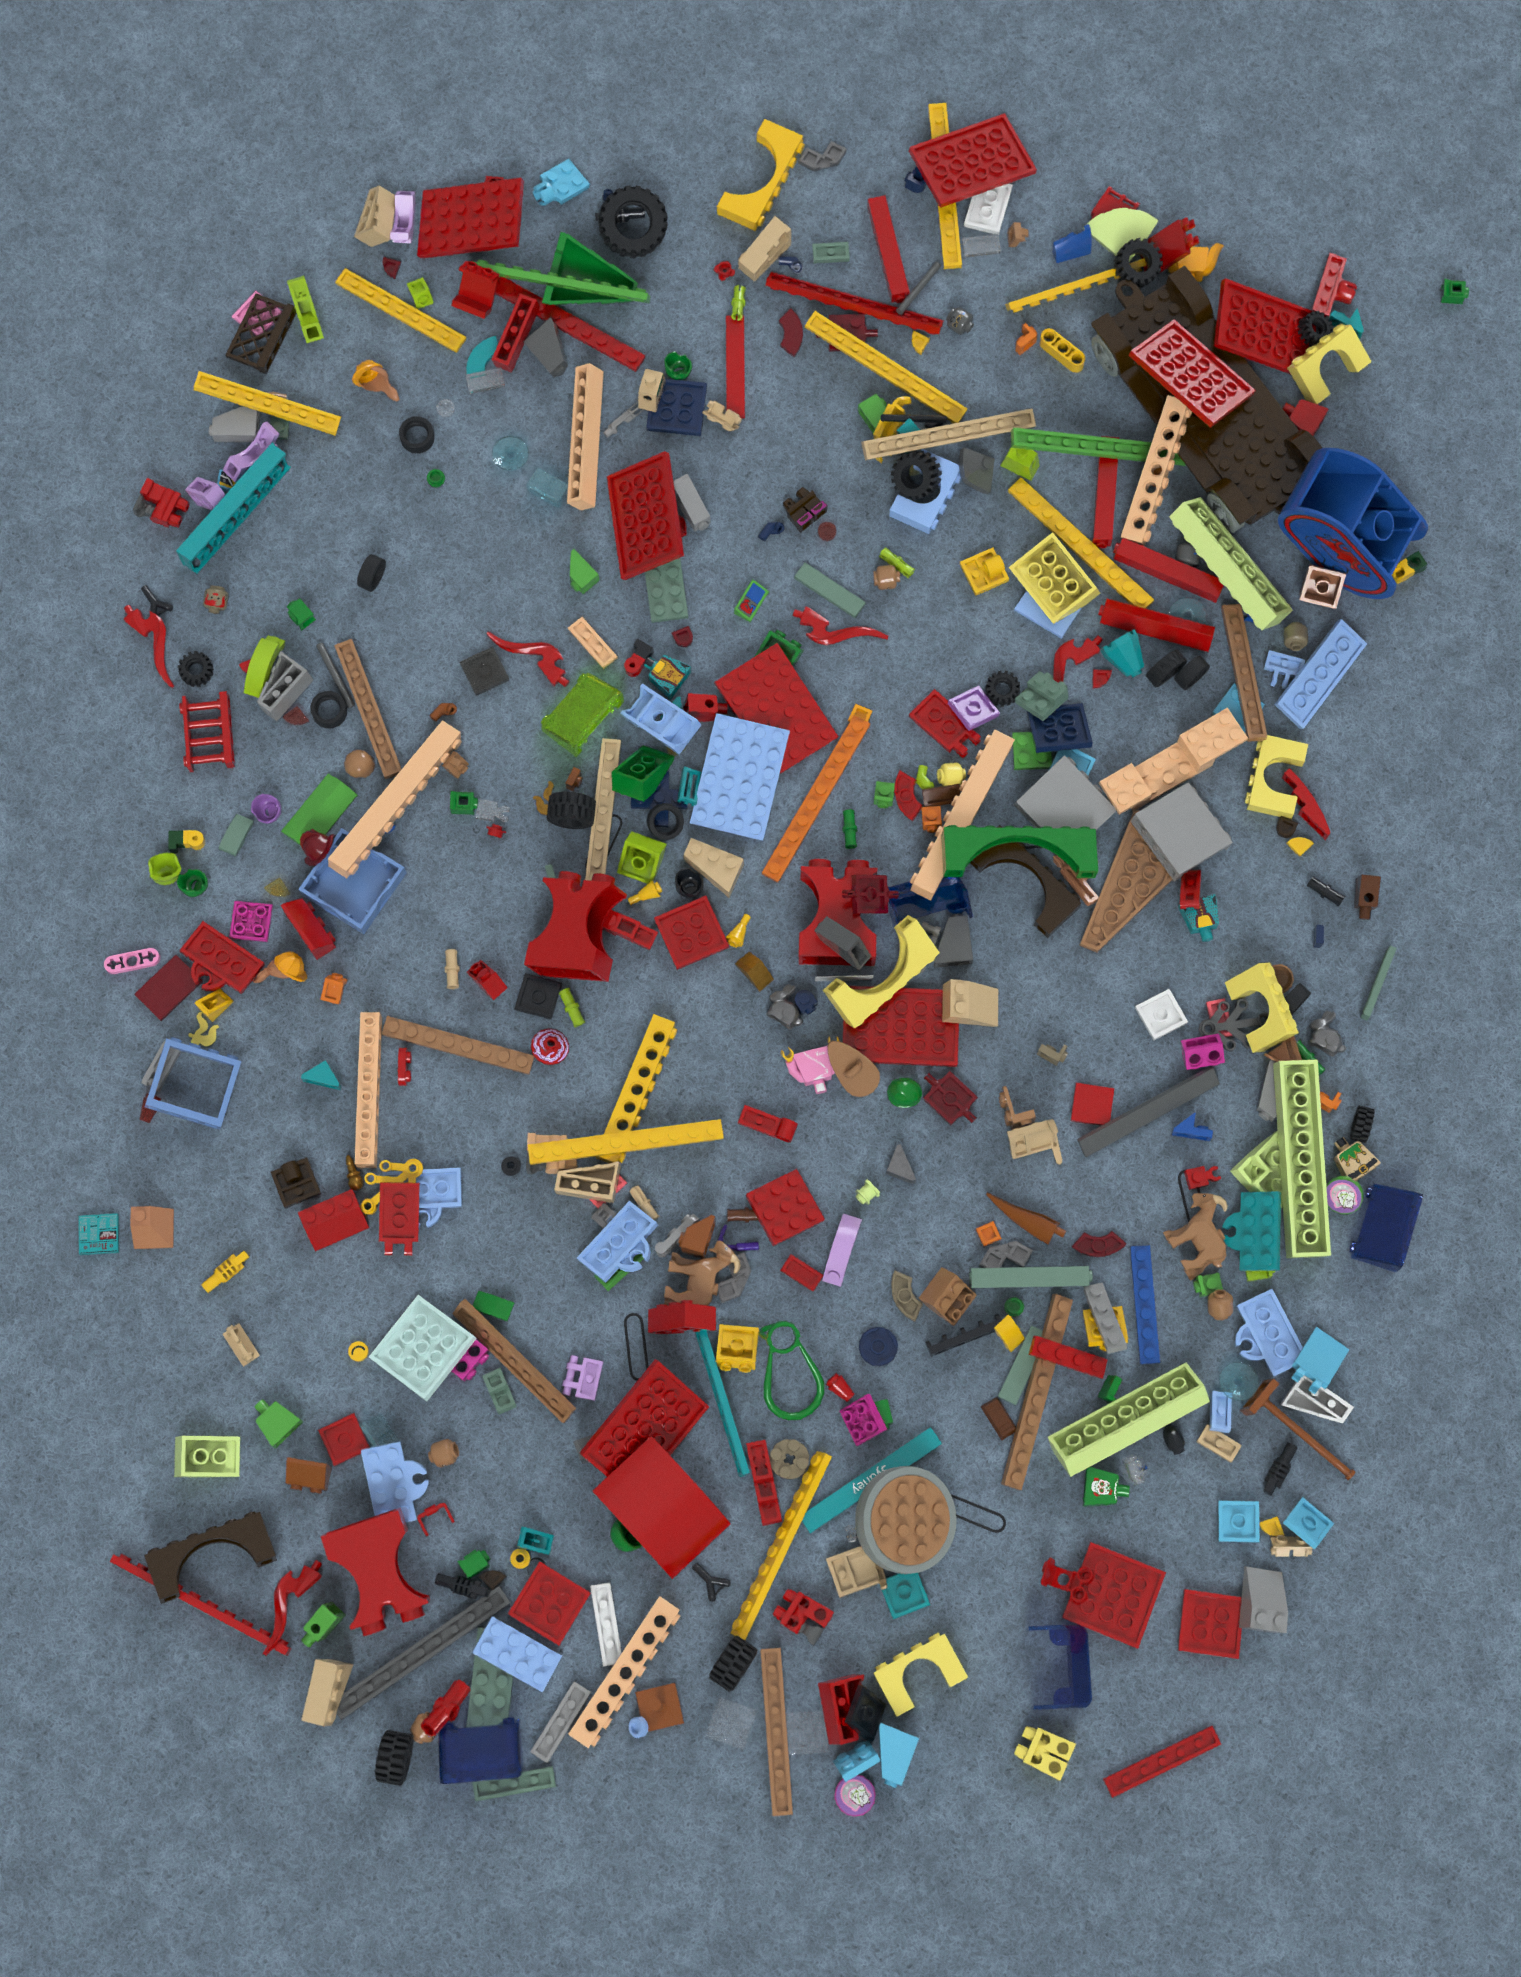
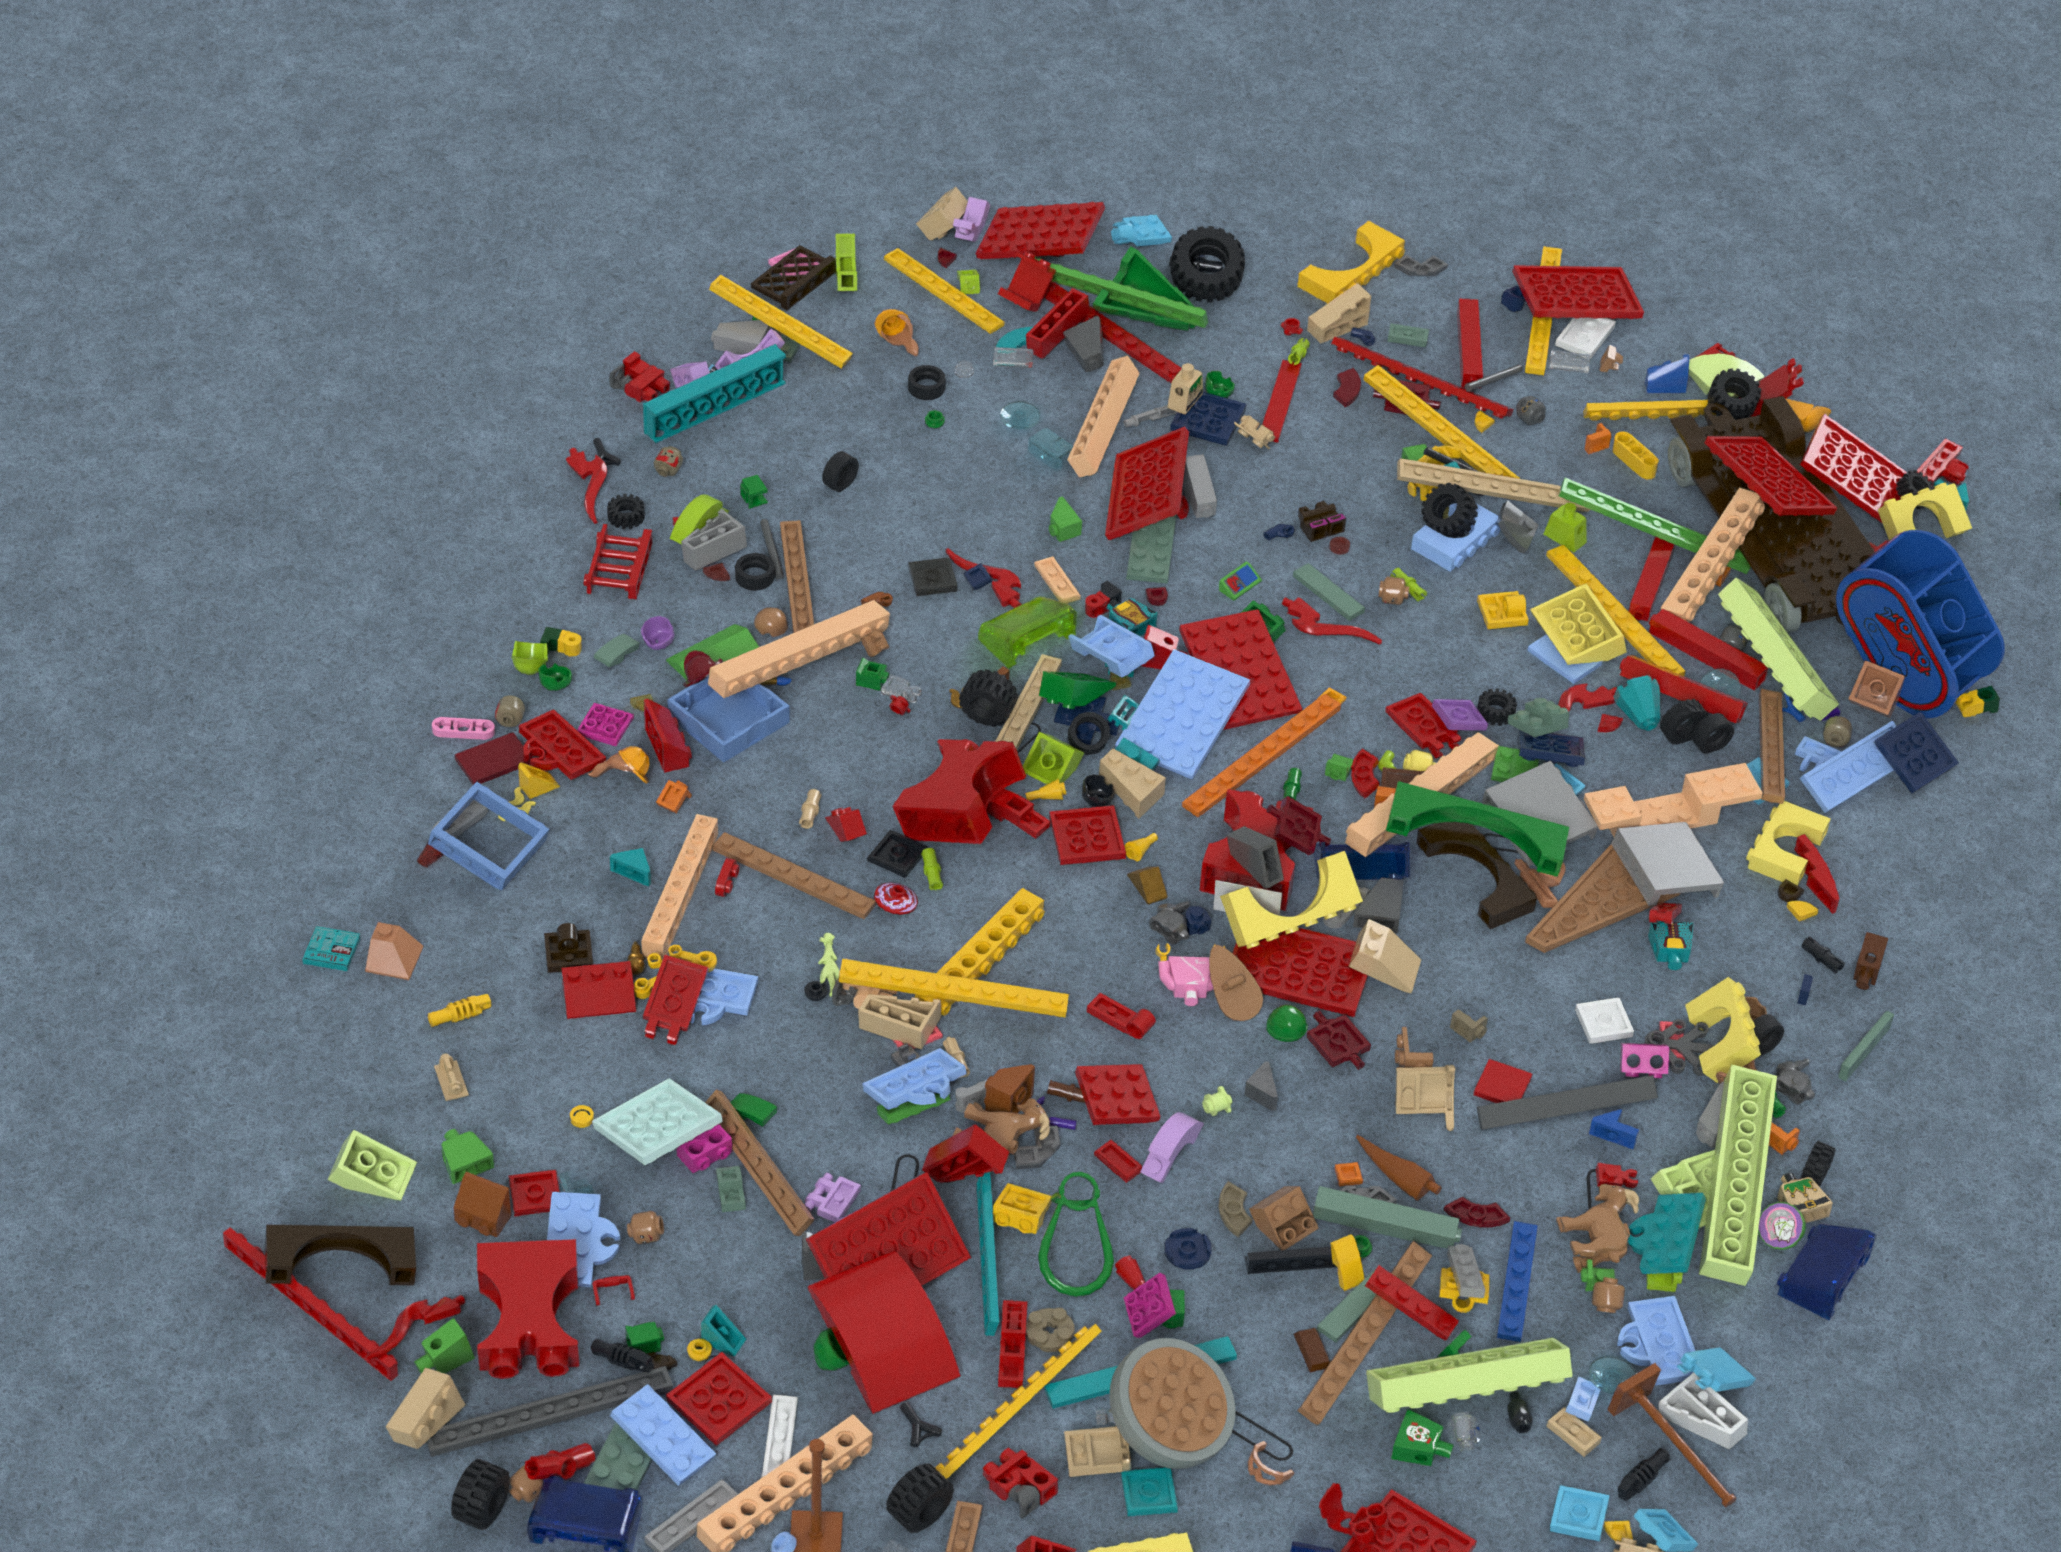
camera: 10 degrees right, 30 degrees down
(166, 933) = (509, 711): none -> dark tan head
(516, 1137) = (830, 969): none -> yellowish green piece
(523, 660) = (977, 577): none -> dark blue tile
(711, 835) = (1138, 754): none -> teal tile
(986, 1553) = (1280, 1477): none -> nougat helmet
(1366, 645) = (1916, 752): none -> dark blue plate

